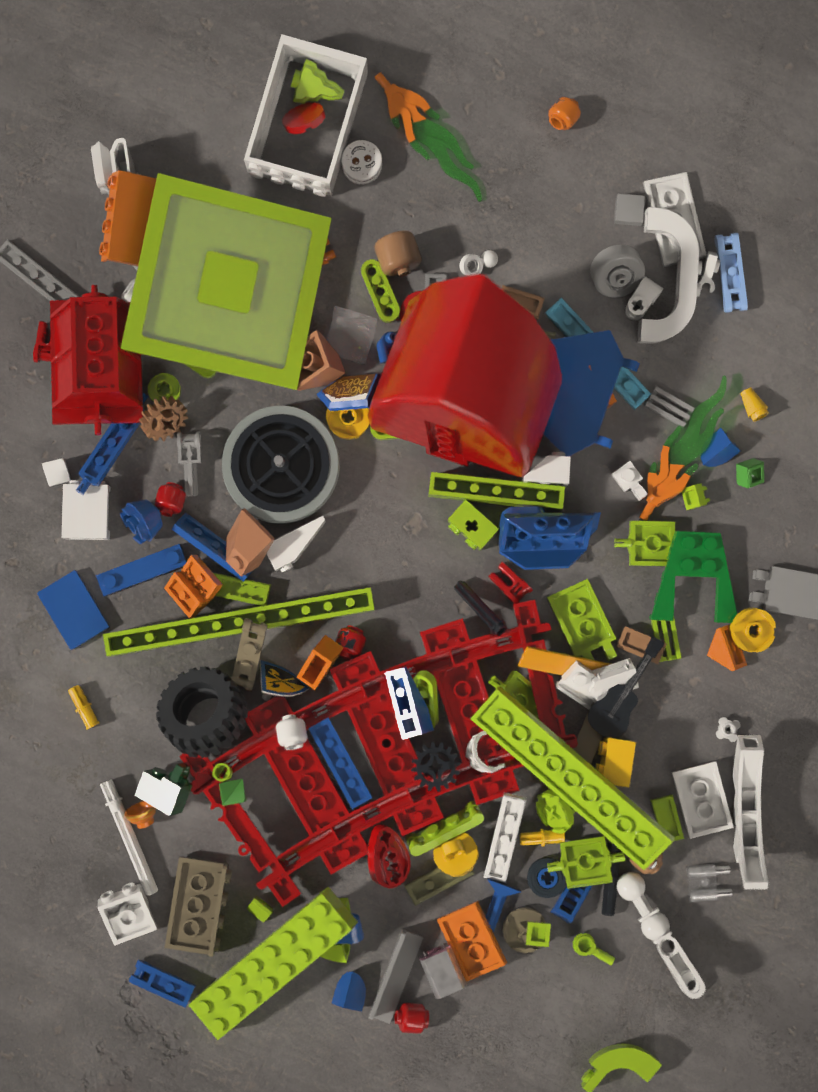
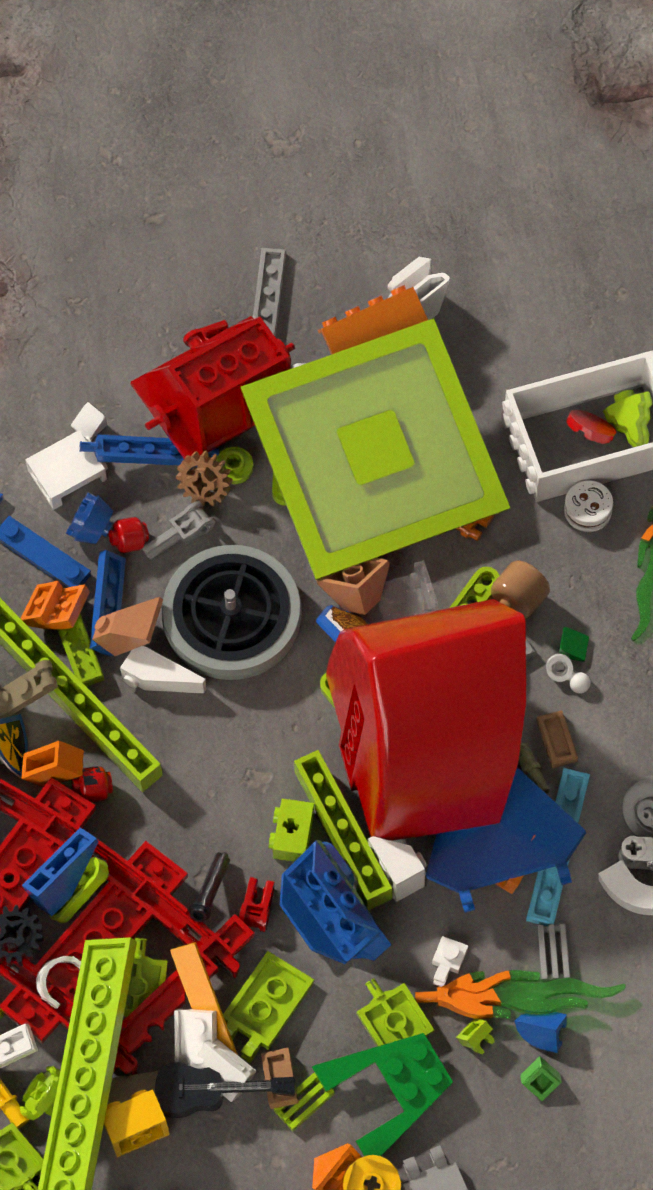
camera: 60 degrees right, 20 degrees down
(350, 430) = (307, 646): yellow plate -> none
(458, 244) = (574, 644): none -> green slope
(754, 405) = (614, 1038): yellow cone -> none

